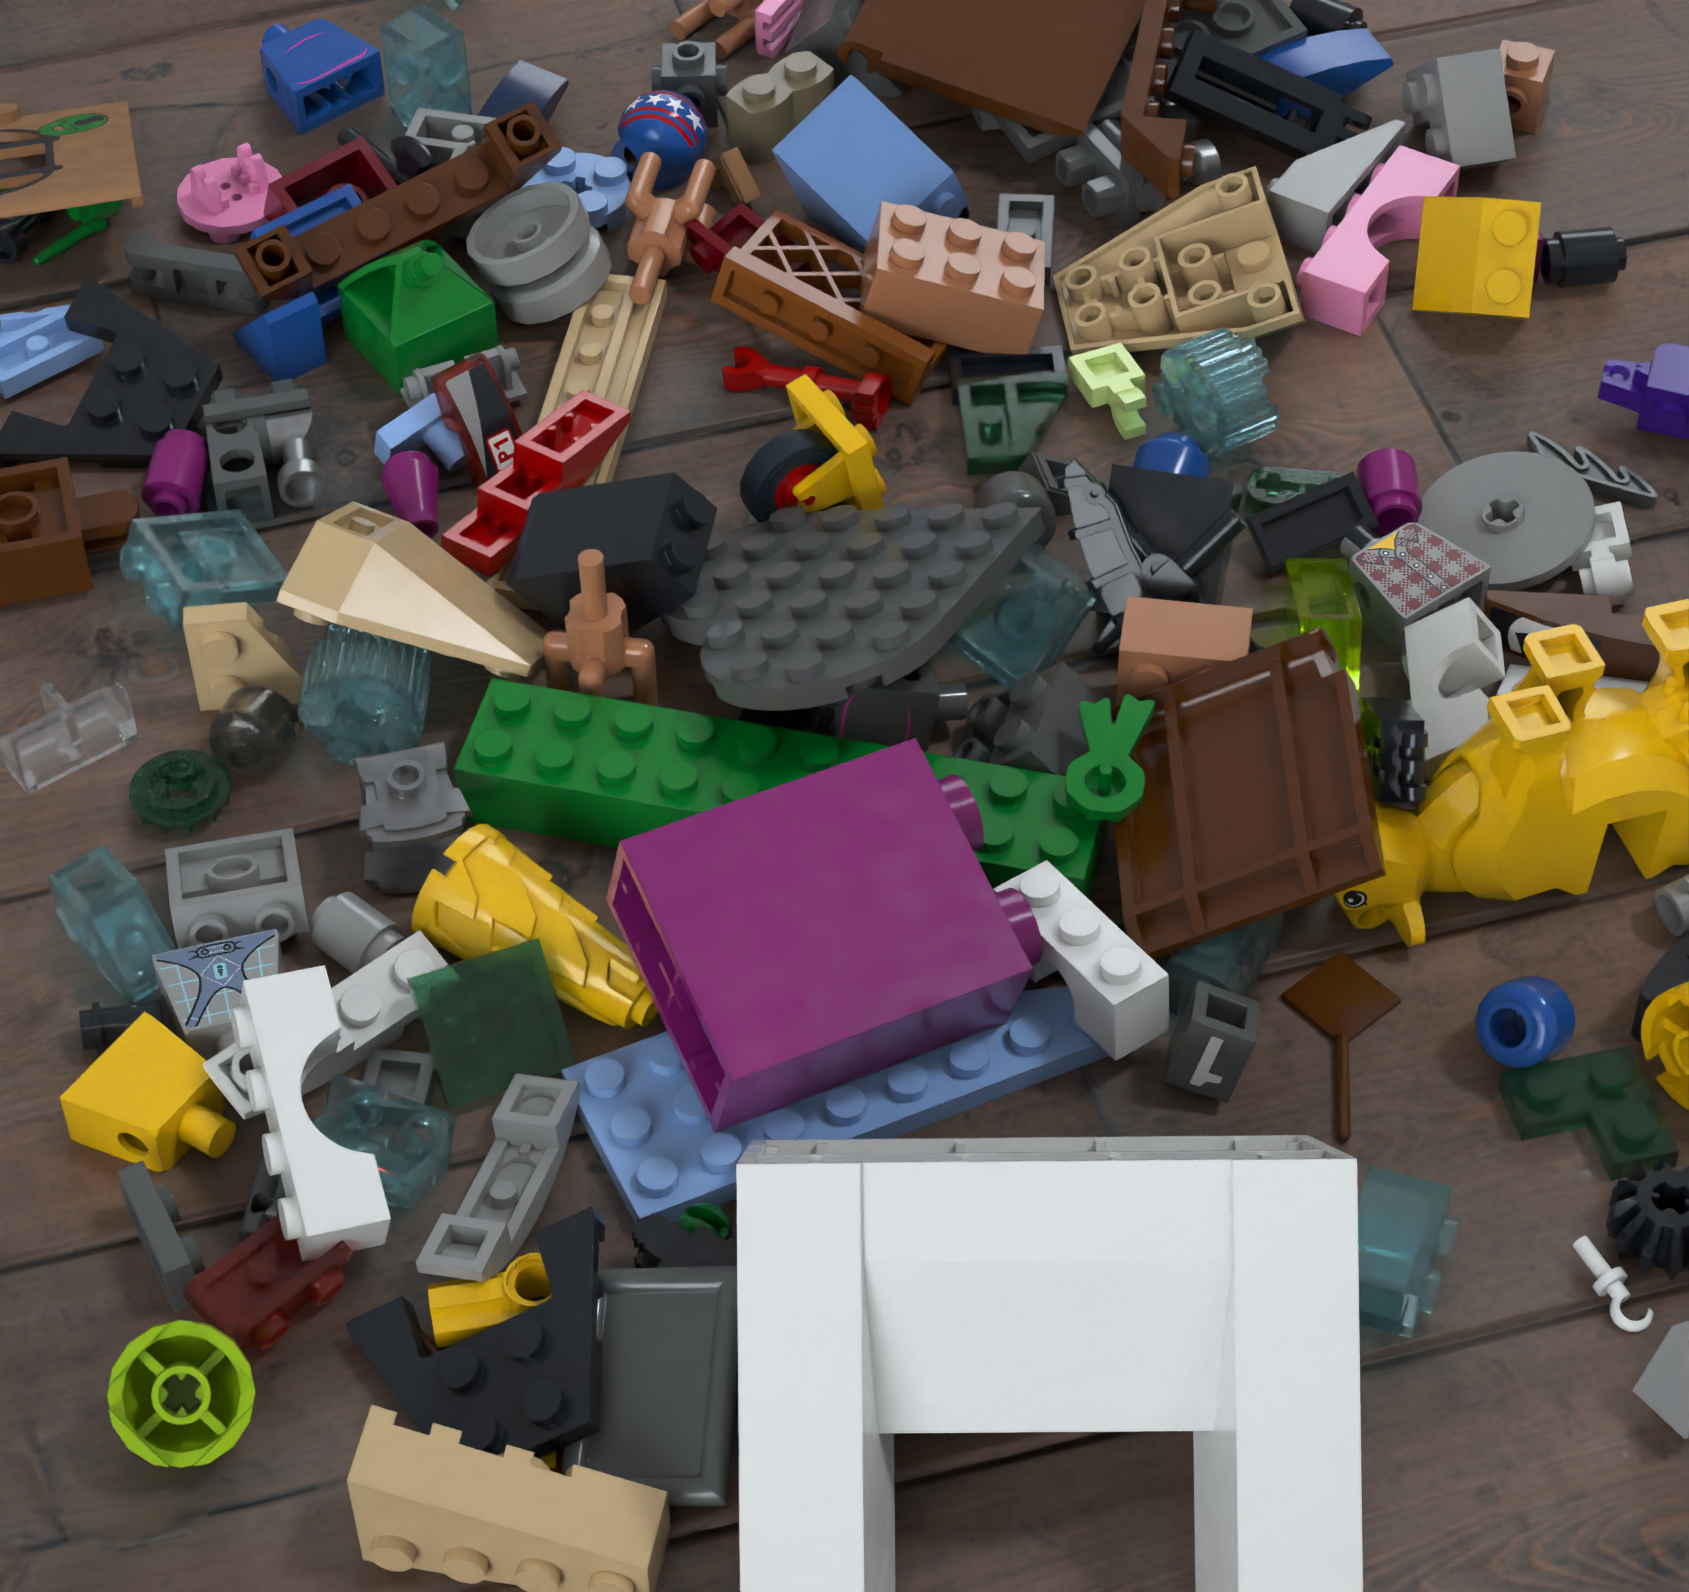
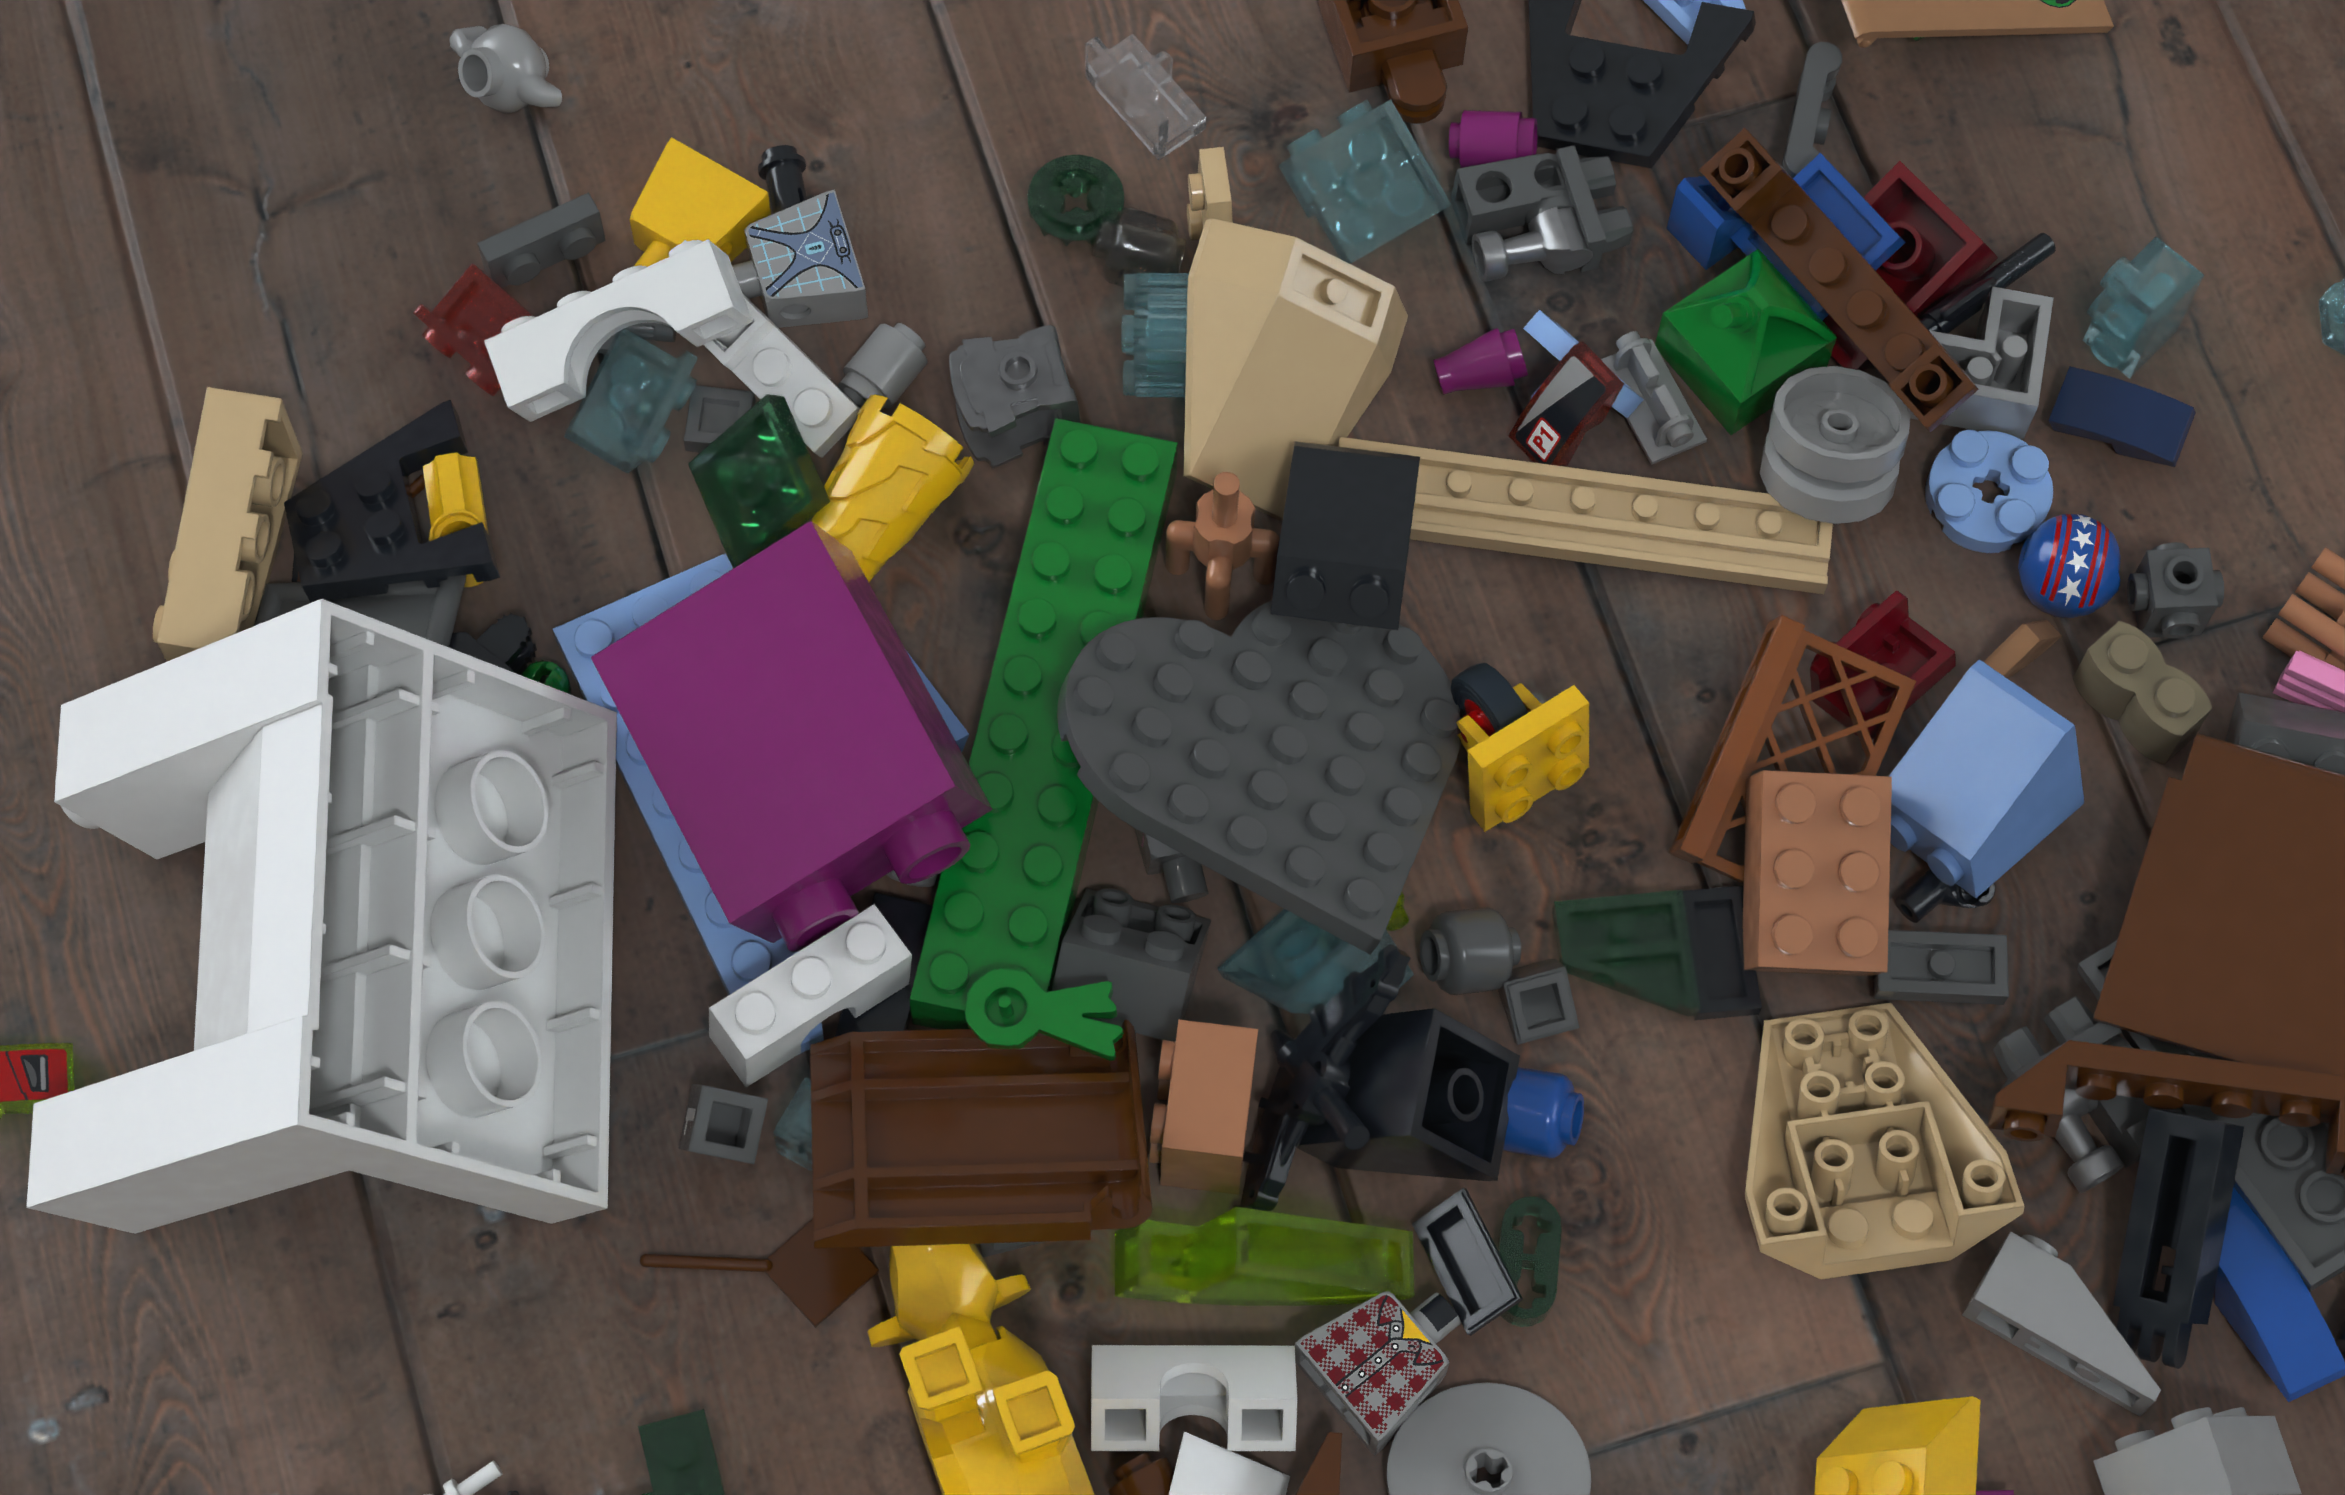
camera: 85 degrees right, 20 degrees up
(110, 921) = (887, 158): clear light blue slope -> none
(181, 1394) = (355, 271): lime cylinder -> none
(227, 195) = (1970, 165): bright pink plate -> none
(236, 888) = (936, 256): light grey plate -> none
(319, 72) = (2163, 195): blue torso -> none
(512, 1184) = (580, 515): light grey slope -> none
(546, 458) = (1481, 473): red slope -> none
(658, 233) = (1912, 570): nougat plant -> none
(868, 397) = (1661, 804): red piece -> none
(1115, 379) = (1700, 1054): yellowish green plate -> none
(1216, 391) = (1649, 1156): clear light blue brick -> none
(1348, 275) = (2043, 1404): bright pink arch -> none
(1390, 488) = (1529, 1352): magenta brick -> none
(1395, 749) = (1065, 1301): black hinge -> none
(1399, 1237) = (484, 1287): clear light blue brick -> none
(1525, 1021) = (749, 1430): blue head -> none

